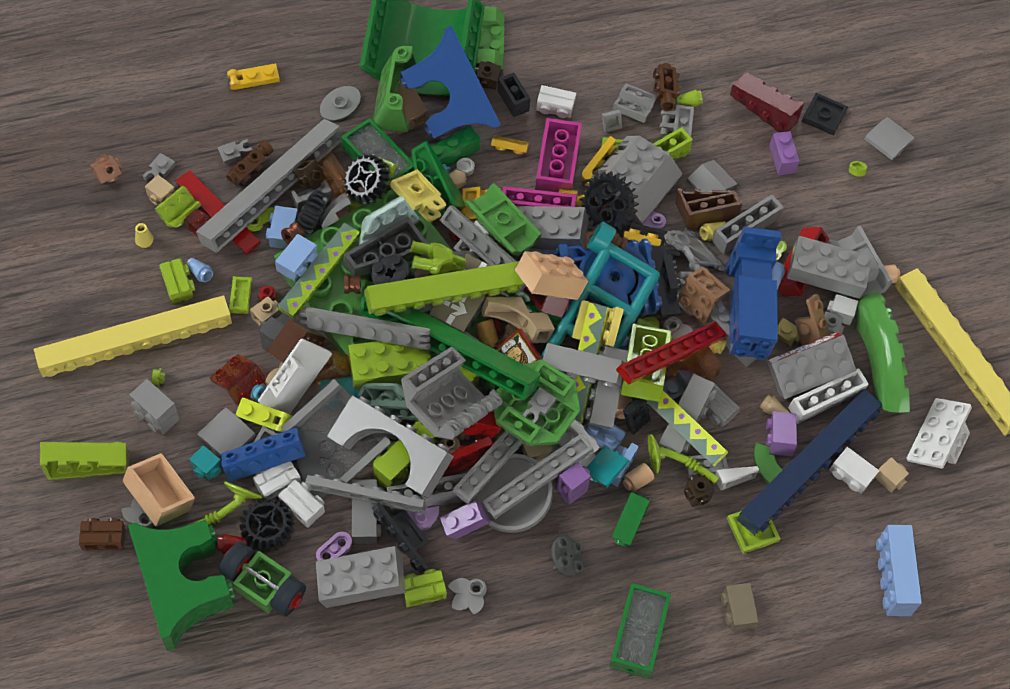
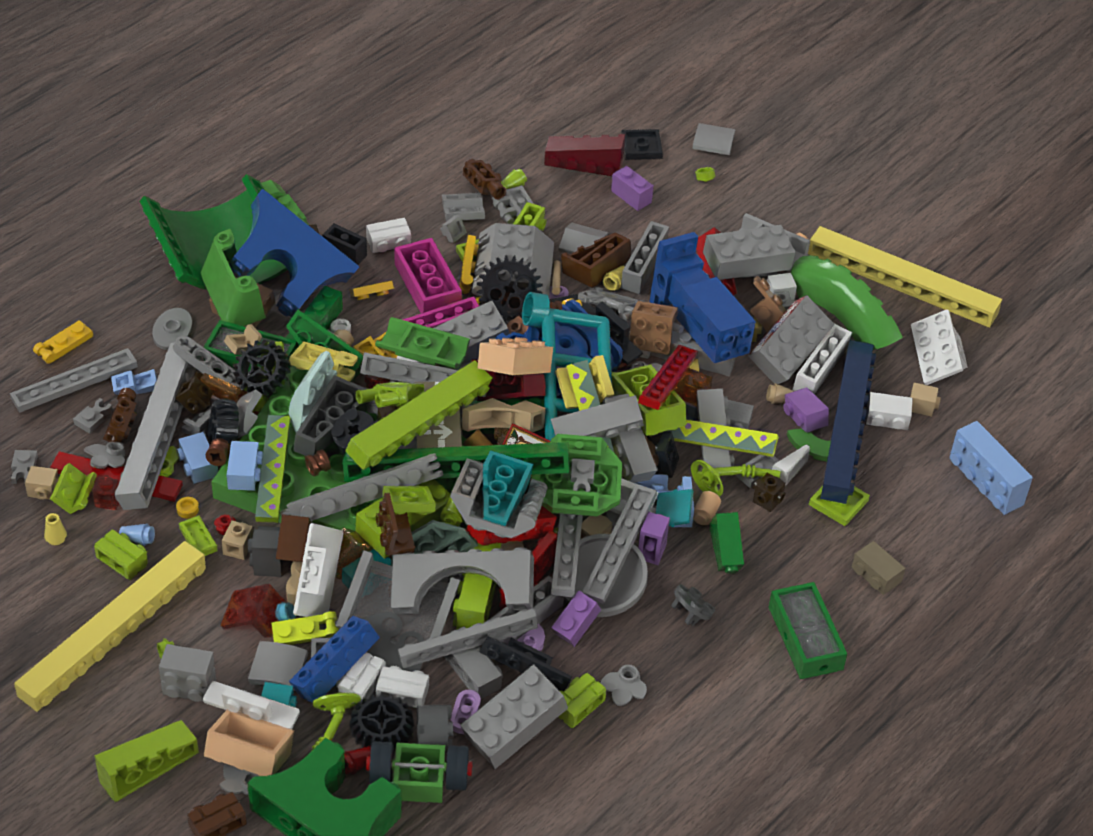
camera: 30 degrees left, 15 degrees down
(179, 460) = (250, 704): none -> white bracket
(219, 191) = (107, 455): none -> light grey plate
(239, 114) = (73, 380): none -> light grey plate
(250, 265) = (187, 507): none -> yellow tile
(279, 137) = (139, 383): none -> light blue slope
(296, 552) = (434, 726): none -> dark grey brick
(334, 153) = (203, 366): none -> light grey beam
(363, 377) = (395, 529): none -> reddish brown bracket
(370, 146) = (240, 341): none -> tan bracket
(387, 356) = (410, 499): none -> lime plate
(459, 388) = (503, 486): none -> teal wedge
(660, 209) = (556, 277): none -> tan bar

